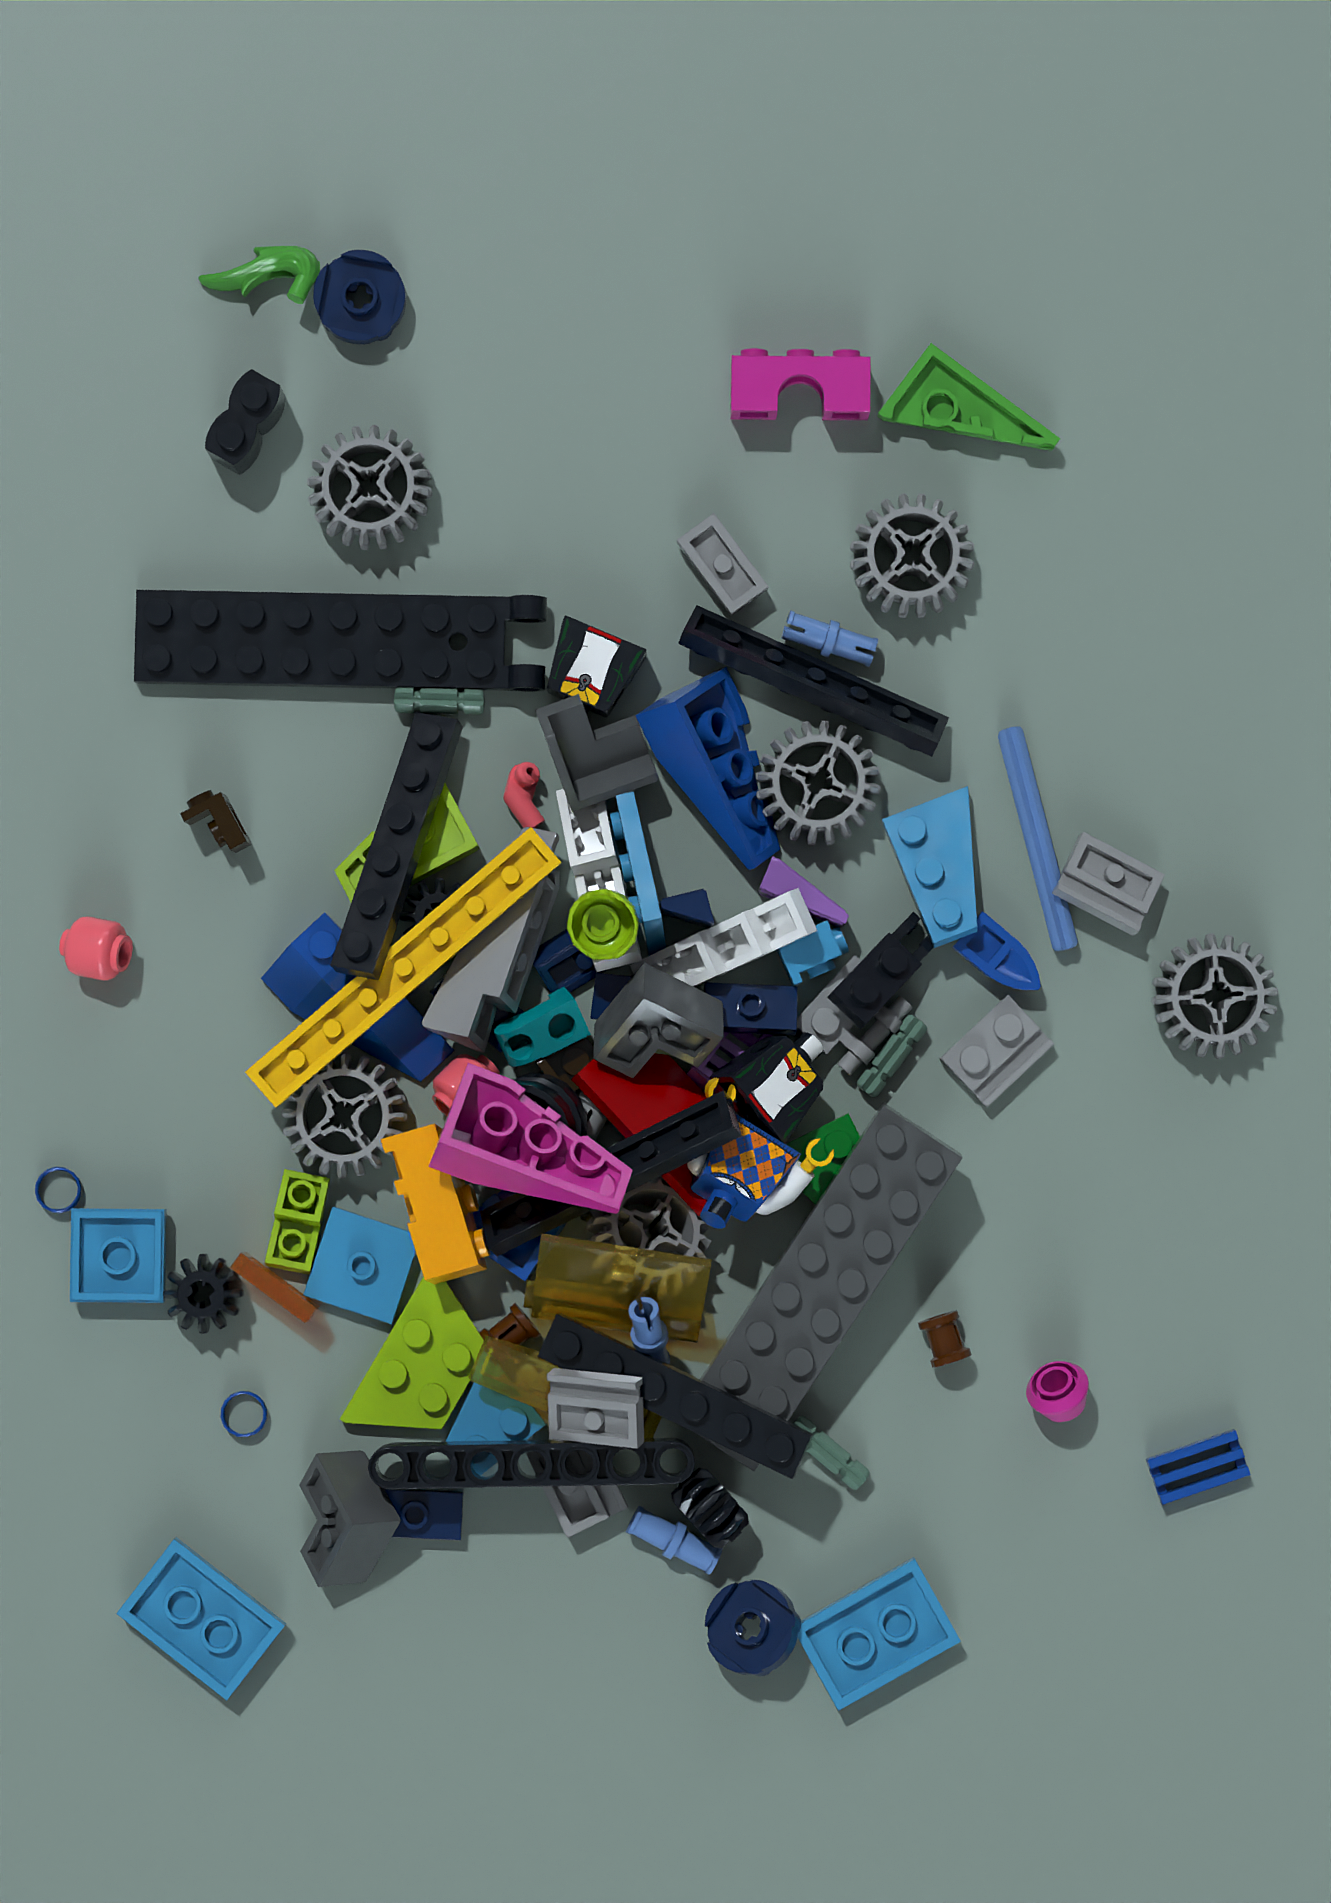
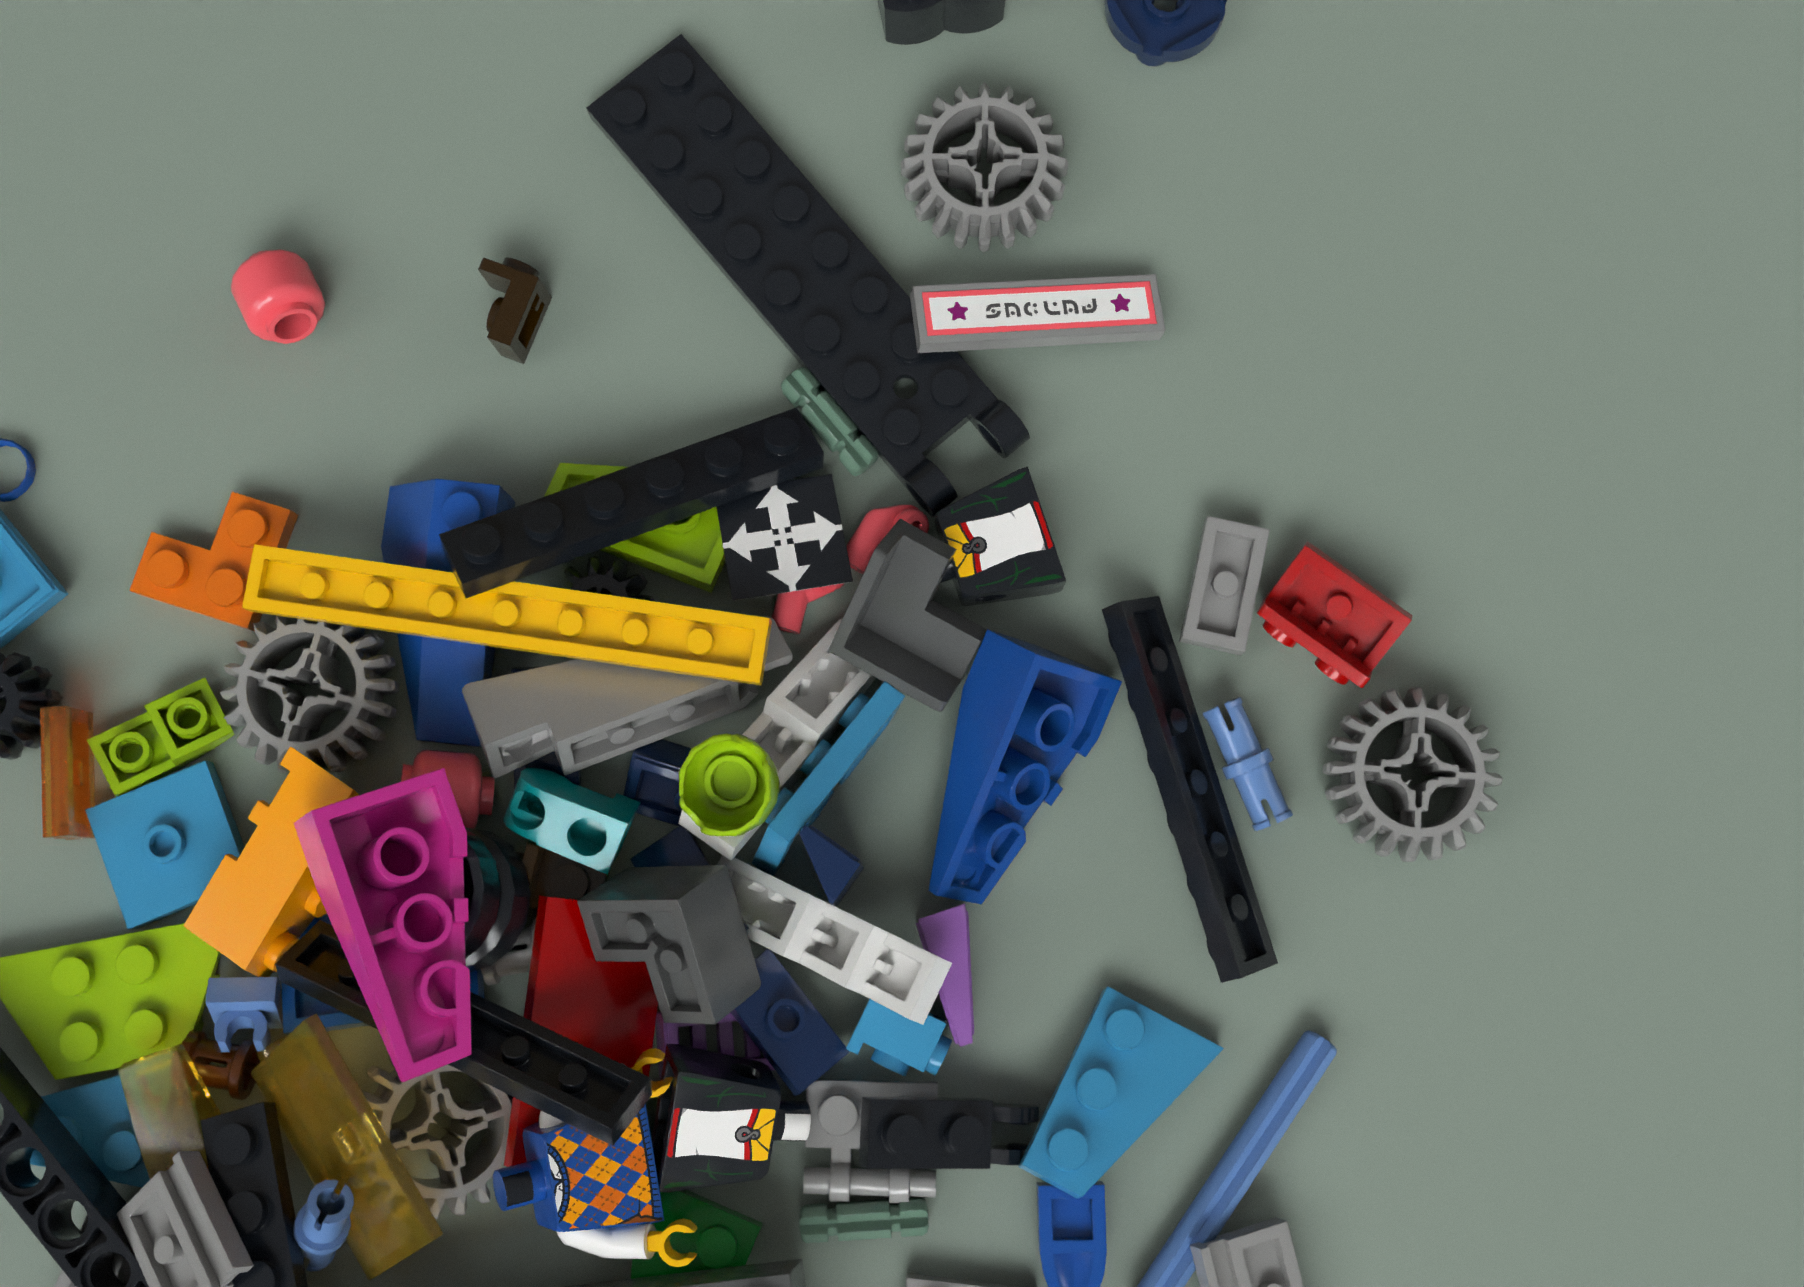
camera: 55 degrees right, 5 degrees down
(235, 1114) = (216, 578): none -> orange plate
(480, 532) = (1036, 313): none -> tile
(487, 782) = (784, 539): none -> black sticker
(492, 1289) = (244, 1005): none -> medium blue tile
(526, 725) = (875, 527): none -> coral arm
(790, 521) = (1332, 616): none -> red bracket
(798, 773) = (1138, 868): light grey gear -> none
(838, 380) = (1521, 535): dark pink arch -> none
(953, 400) = (1612, 676): bright green wing -> none

